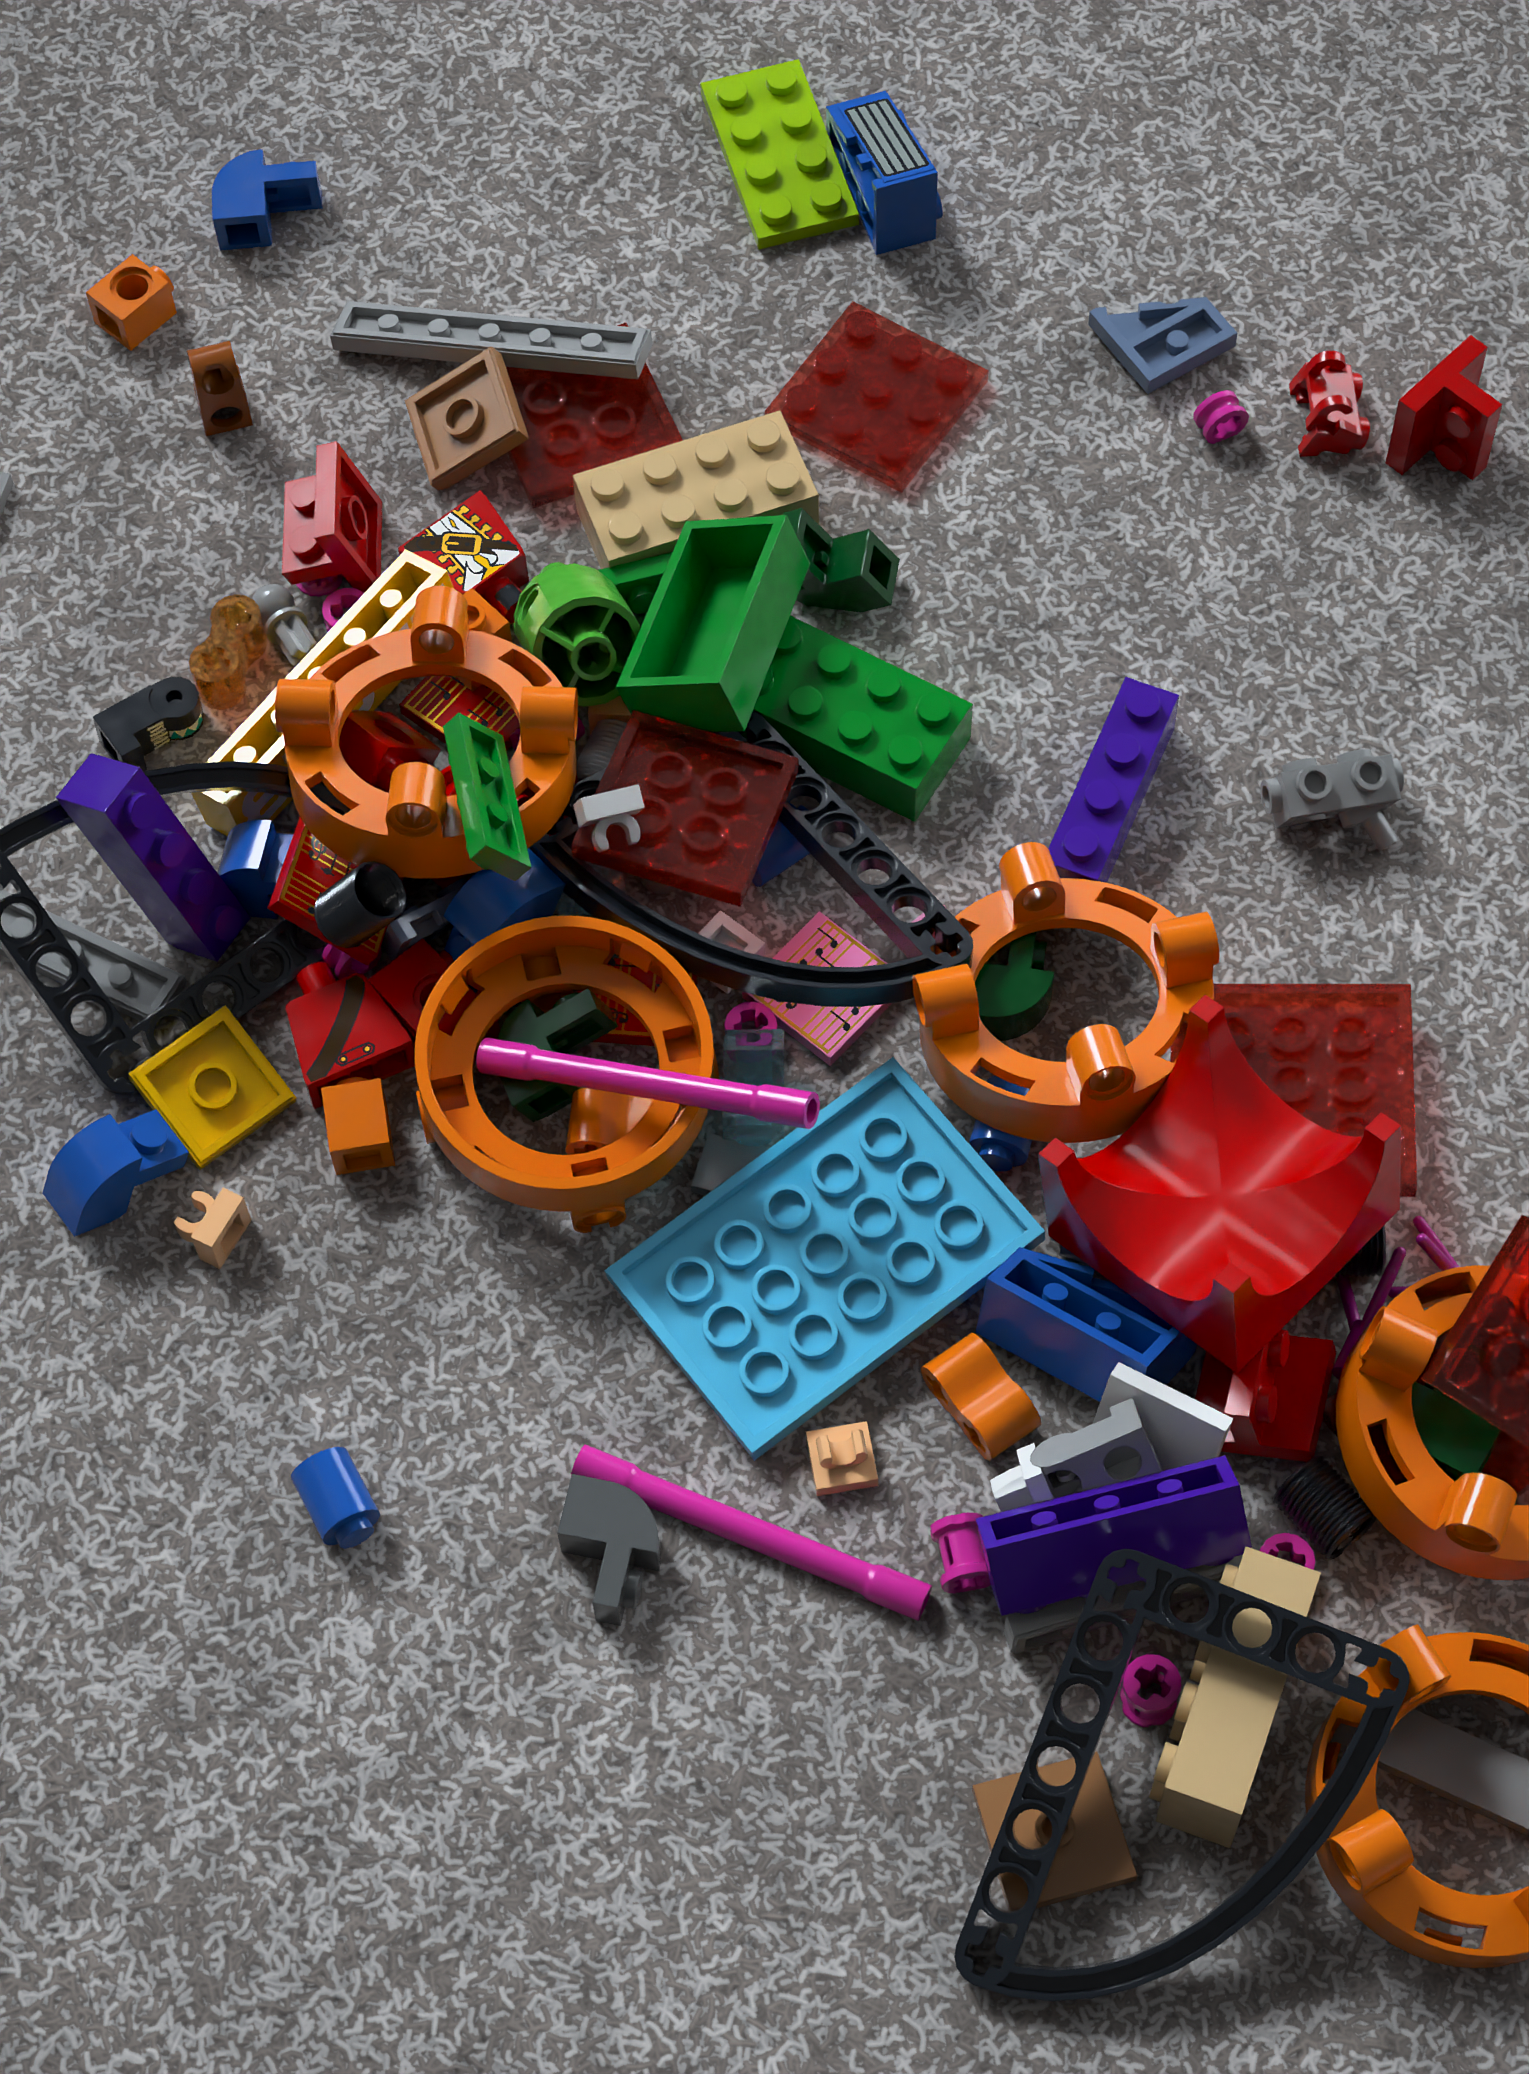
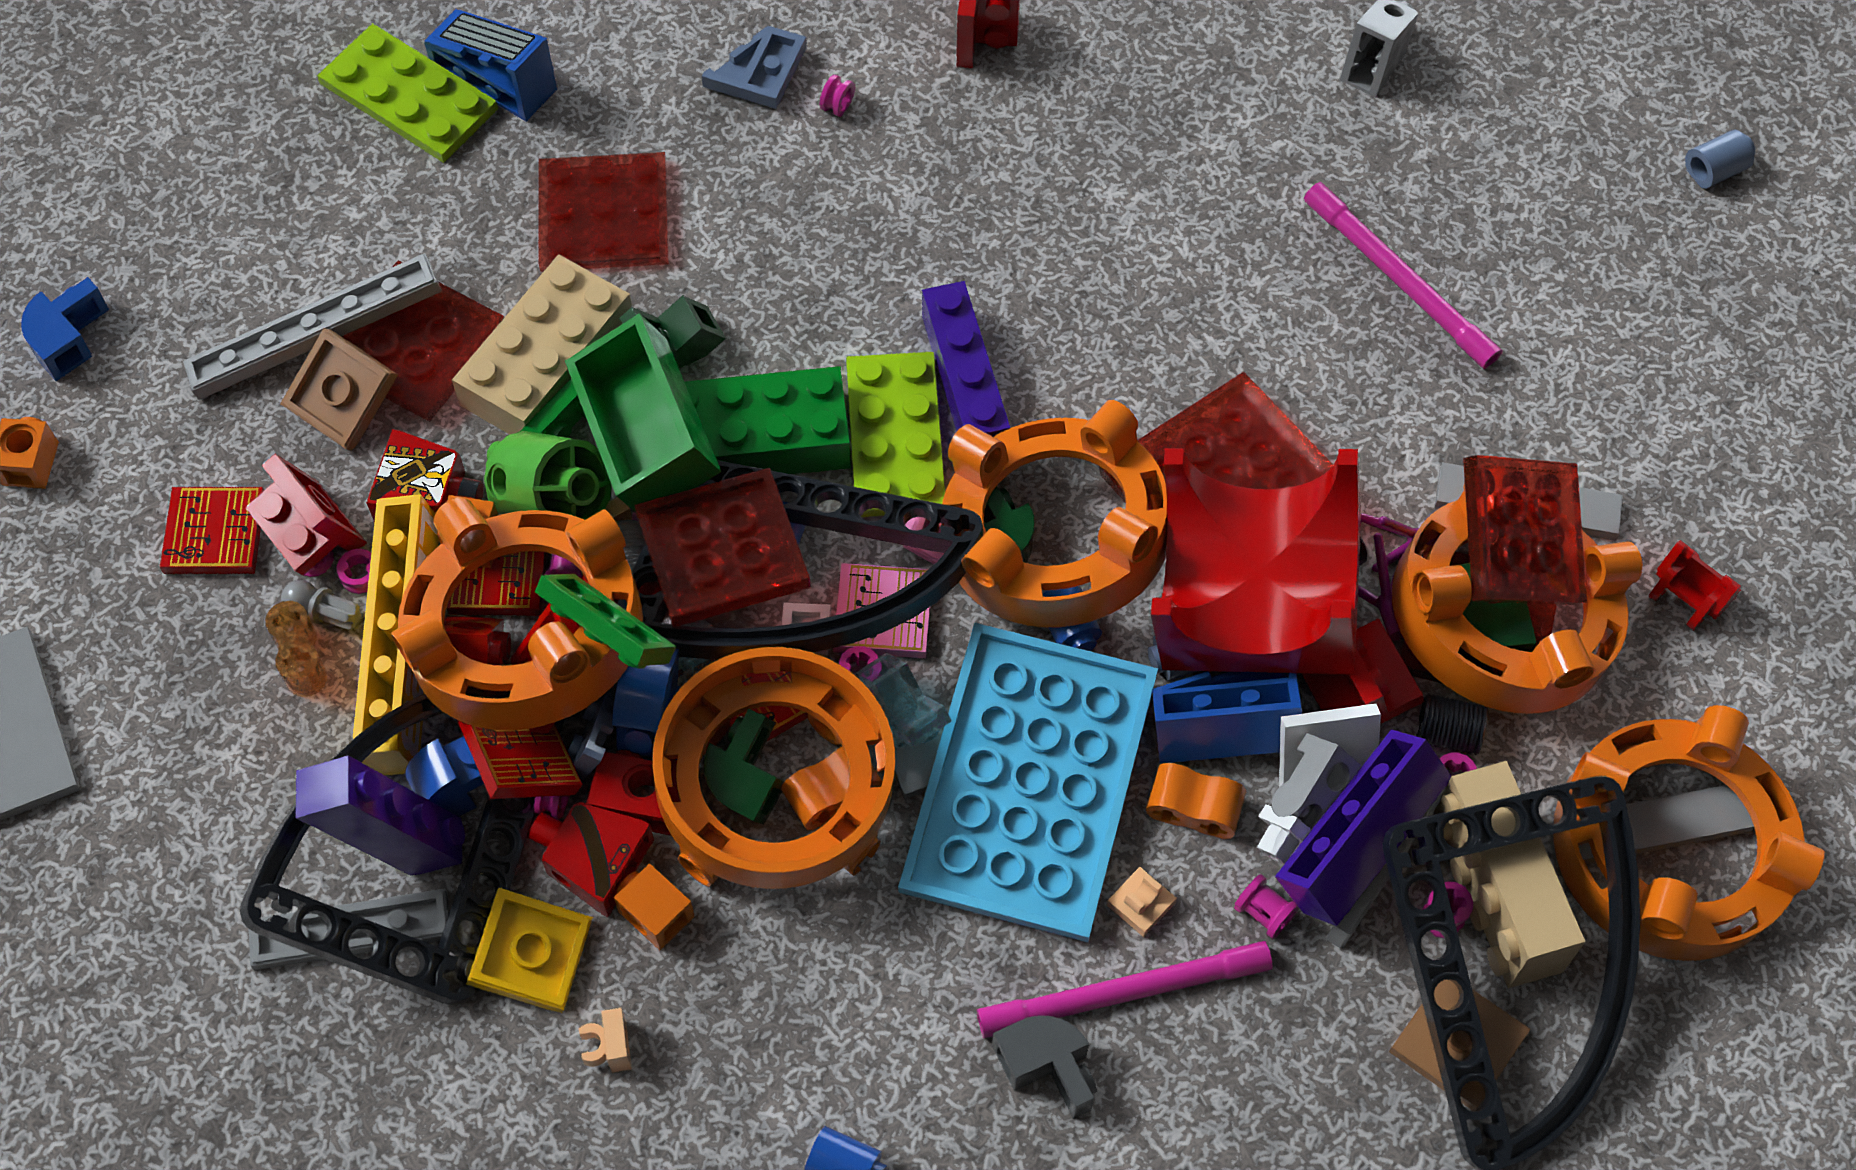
camera: 40 degrees left, 0 degrees up
(104, 1162) = (504, 1054): blue brick -> none
(150, 720) = (275, 732): black leg -> none
(218, 386) = (140, 470): dark orange leg -> none
(241, 487) = (211, 531): none -> red tile
(360, 904) = (555, 753): black piece -> none
(610, 809) = (684, 577): white tile -> none
(763, 1102) = (749, 782): dark pink piece -> none
(993, 798) = (895, 426): none -> lime plate
(1333, 398) = (910, 54): red piece -> none
(1344, 790) = (1109, 276): light grey brick -> none

